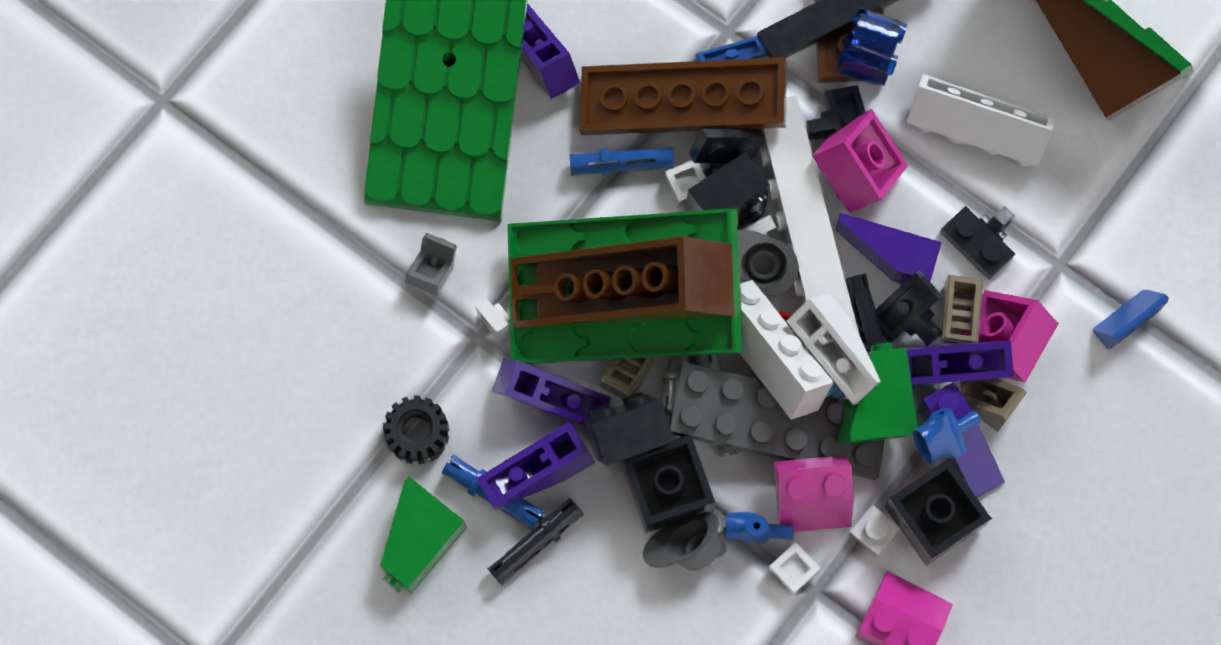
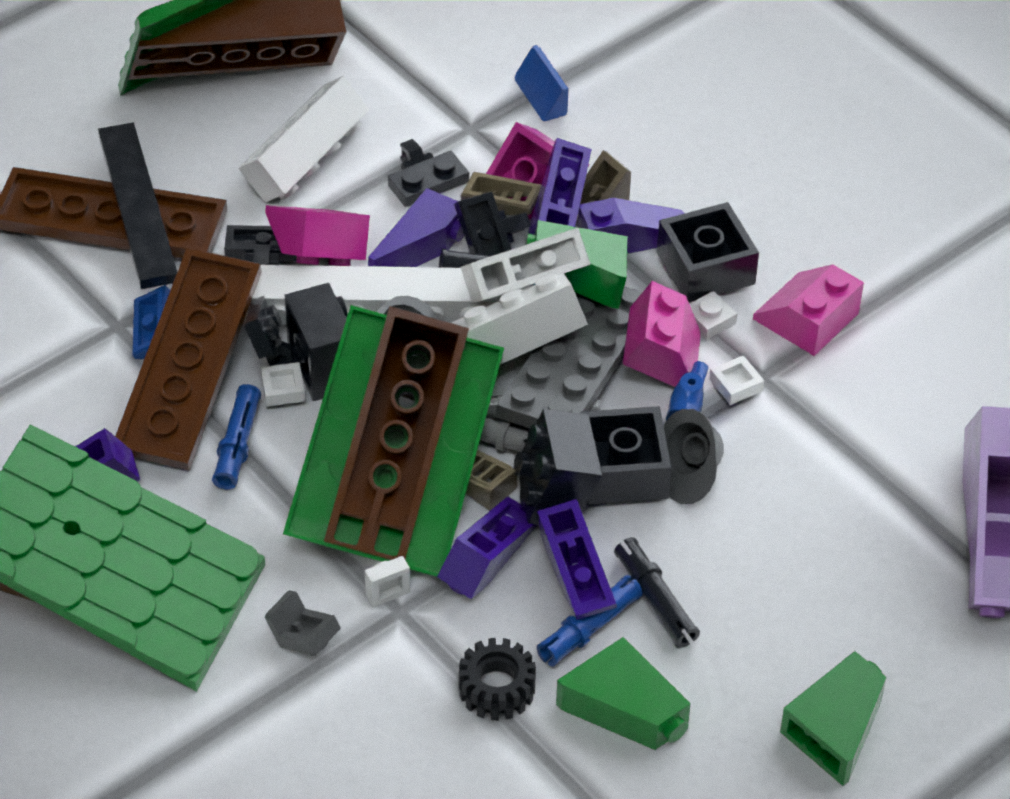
camera: 80 degrees left, 25 degrees down
(871, 47) = (200, 187): clear blue brick -> none
(942, 435) = (635, 218): blue piece -> none

